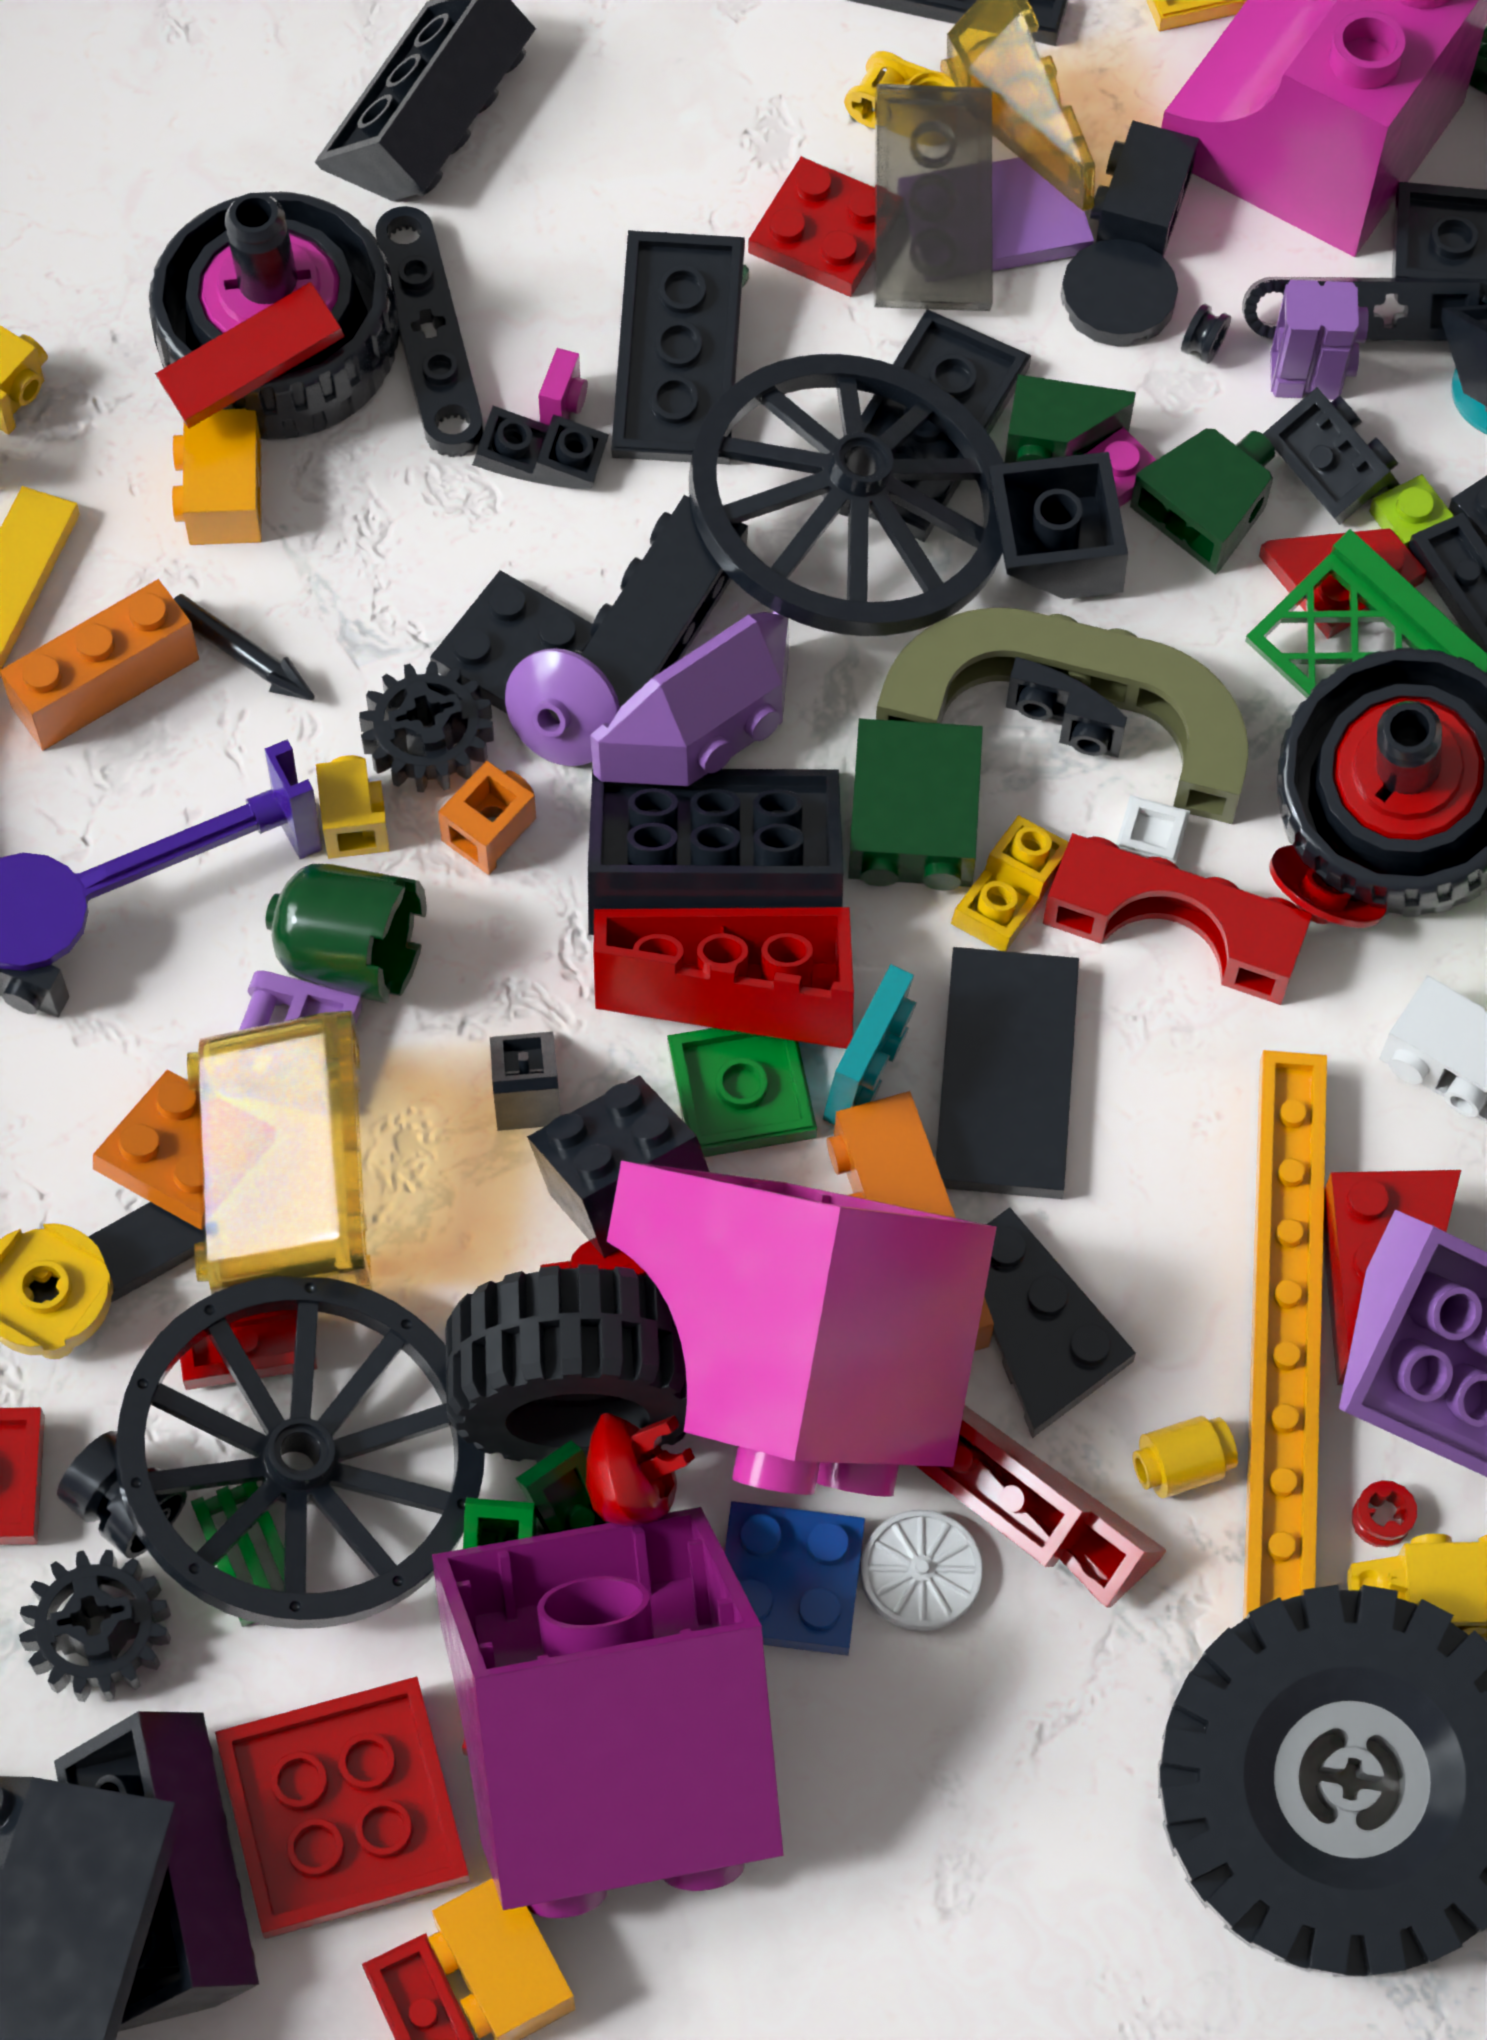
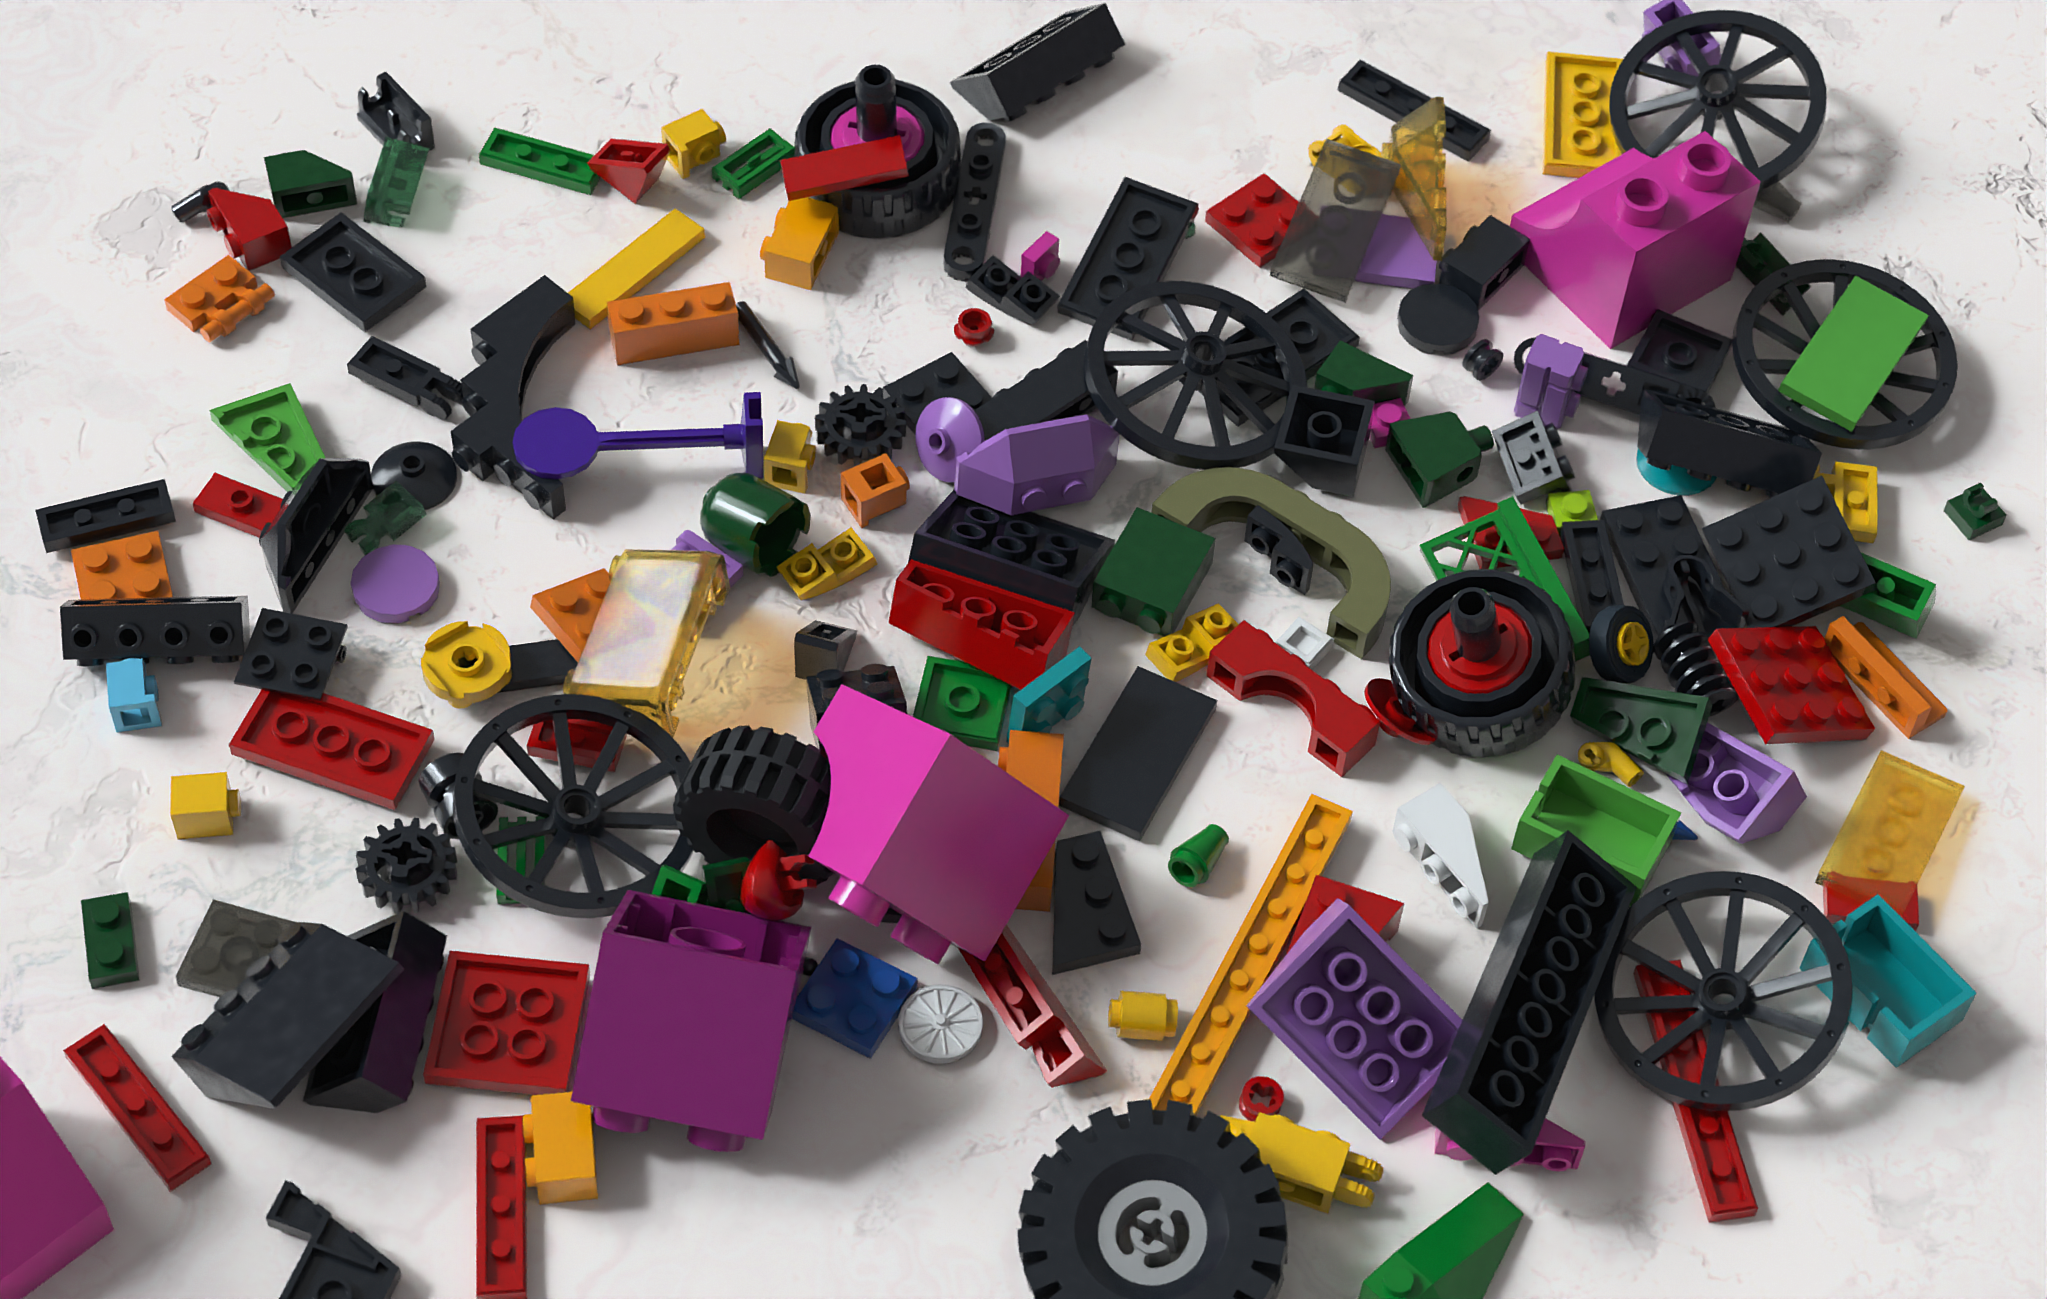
camera: 20 degrees right, 10 degrees down
(115, 393) = (759, 166): none -> green tile
(472, 951) = (832, 565): none -> yellow slope
(513, 509) = (974, 327): none -> red plate
(1153, 1195) = (1198, 856): none -> green cone

